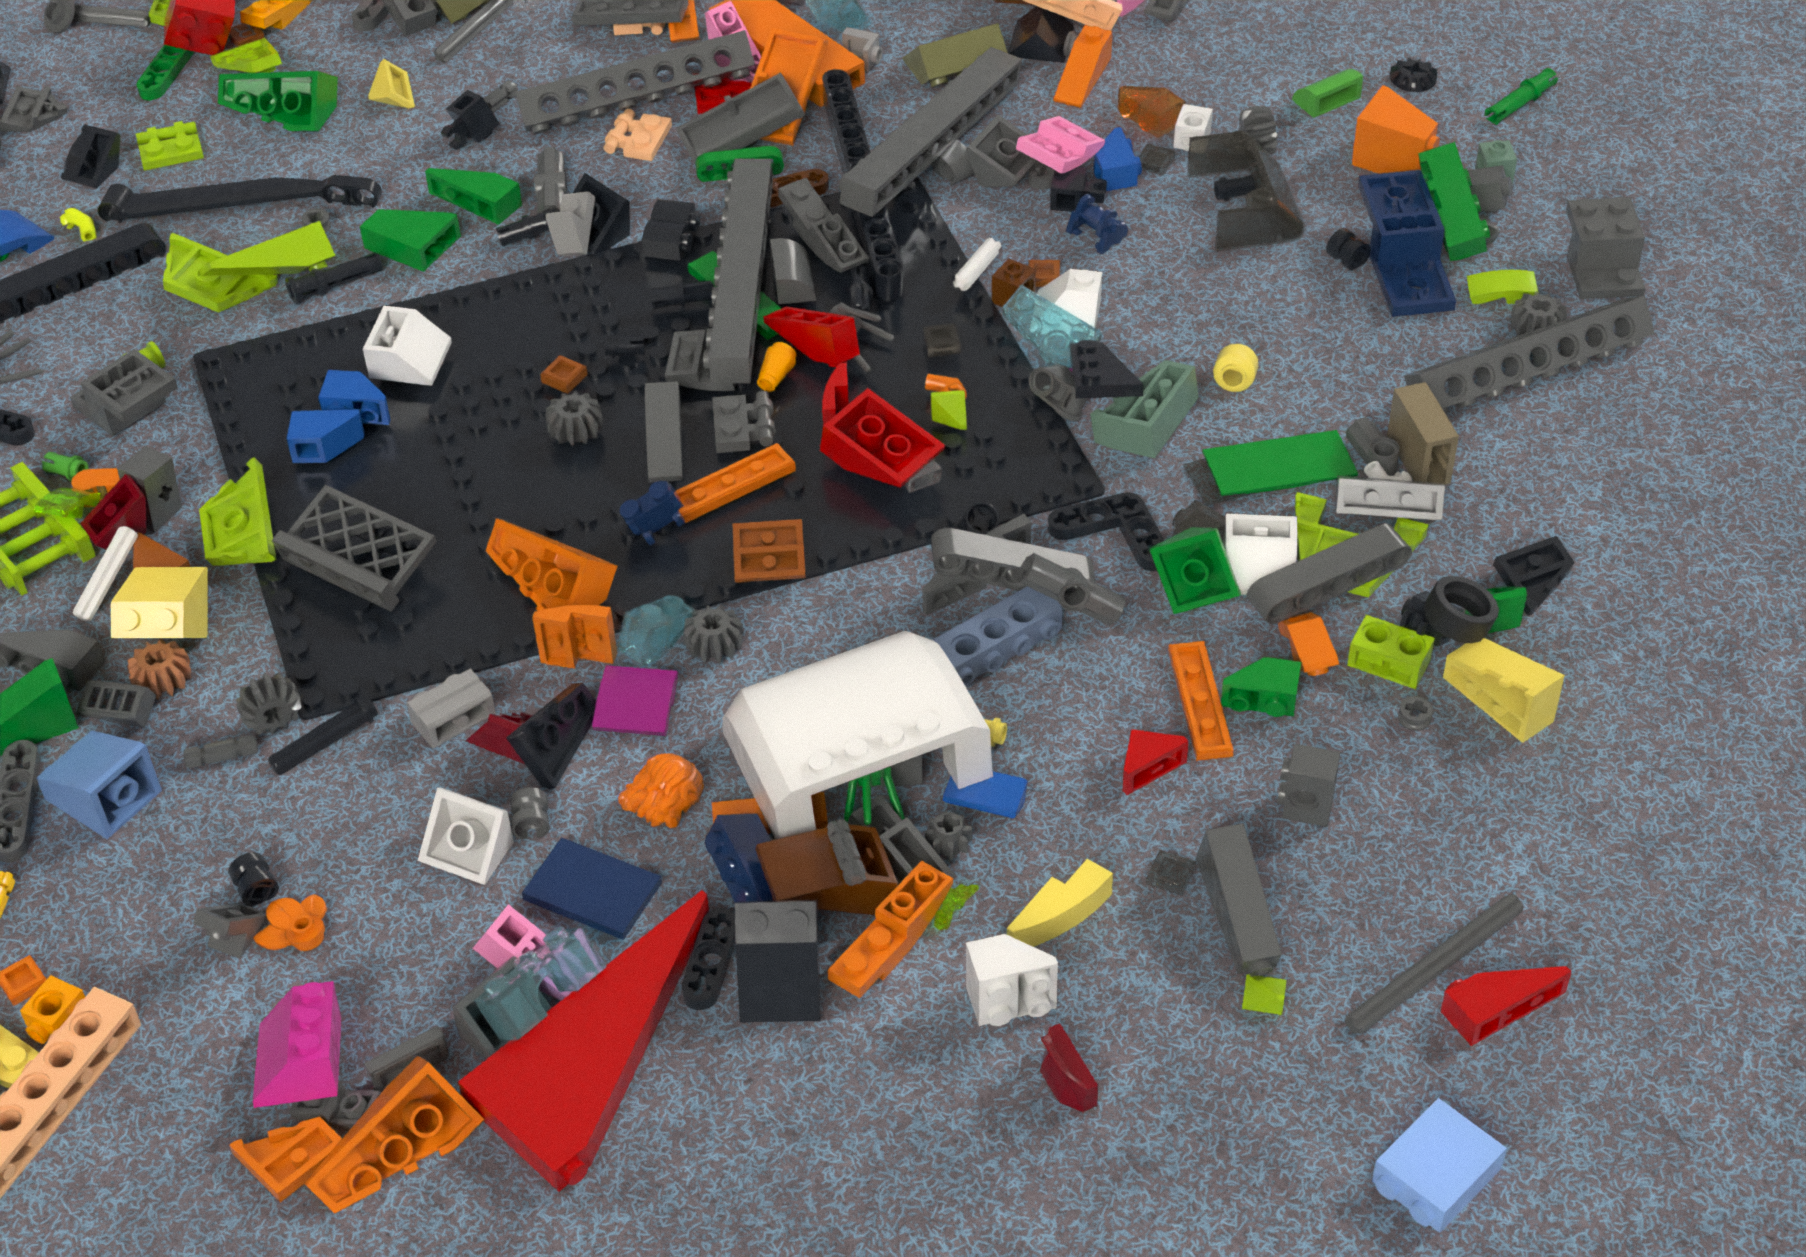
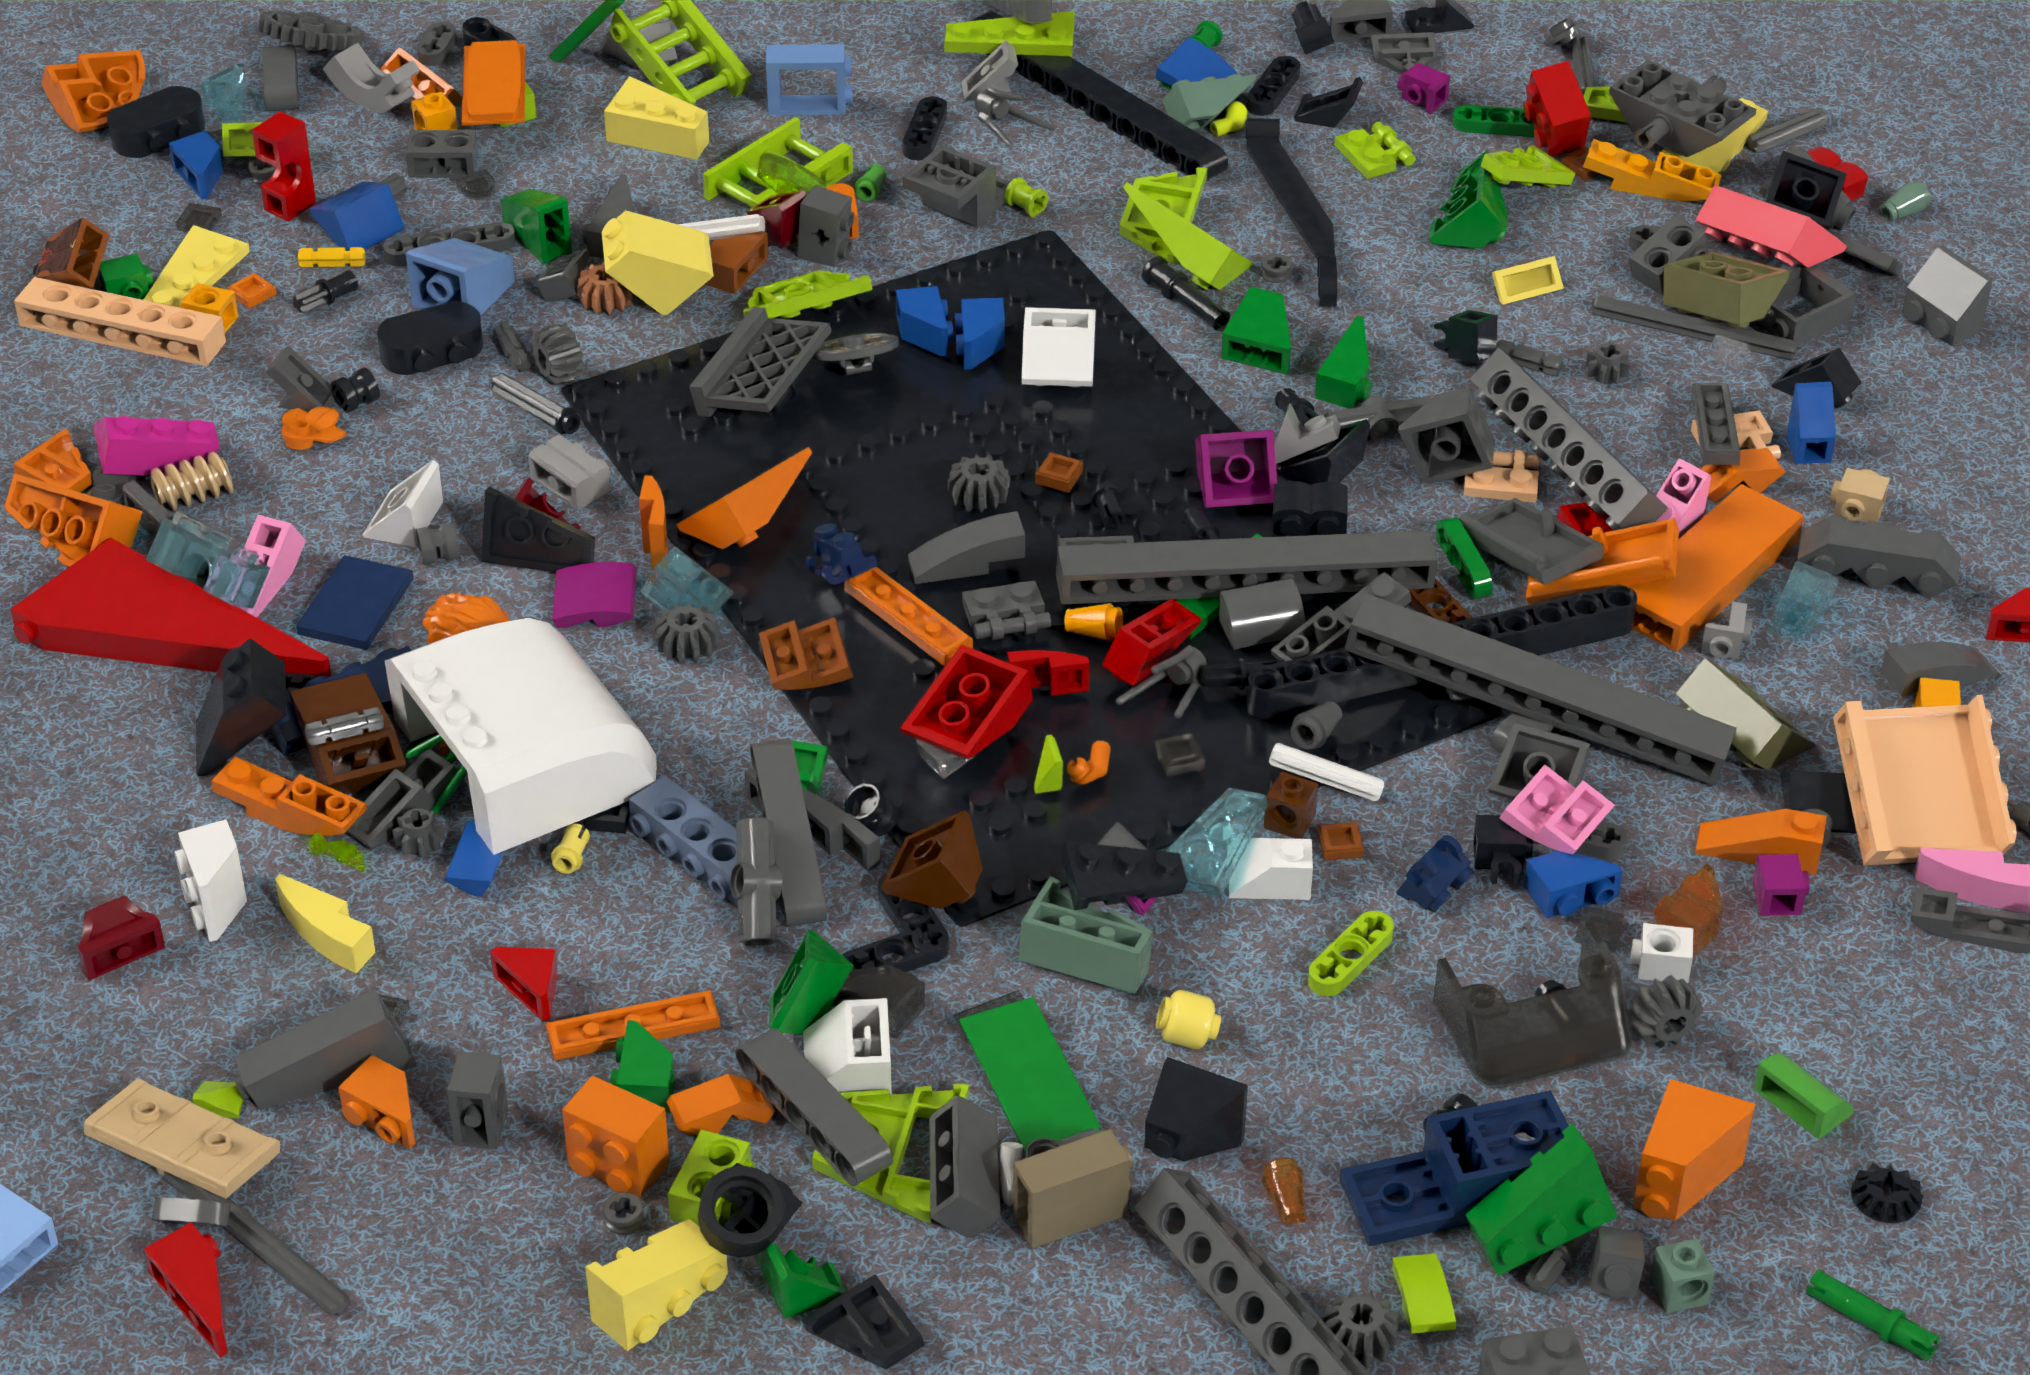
camera: 80 degrees right, 5 degrees down
(35, 183) = (1273, 76): none -> black beam
(58, 224) = (1202, 101): none -> sand green slope
(59, 907) = (324, 292): none -> black axle
(99, 100) = (1424, 87): none -> magenta brick
(190, 813) = (430, 338): none -> black brick
(356, 473) = (856, 347): none -> dark grey shield
(367, 1019) = (191, 480): none -> tan piece
(525, 57) = (1608, 363): none -> dark grey gear
(603, 262) = (1236, 468): none -> magenta slope
(617, 137) = (1449, 437): none -> dark grey slope
(909, 567) = (811, 764): none -> green bracket
(929, 258) = (1315, 725): none -> dark grey cone
(1057, 482) = (937, 864): none -> reddish brown slope
(1130, 67) = (1780, 884): none -> magenta brick
(1164, 271) = (1351, 939): none -> lime beam
(1291, 861) = (379, 1099): none -> orange slope
(1331, 1009) = (181, 1138): none -> tan container
(1344, 369) = (1194, 1113): none -> black slope
(1358, 696) = (616, 1137): none -> orange brick
(1406, 339) = (1285, 1187): none -> clear orange cone
(1420, 1000) = (191, 1210): none -> beam

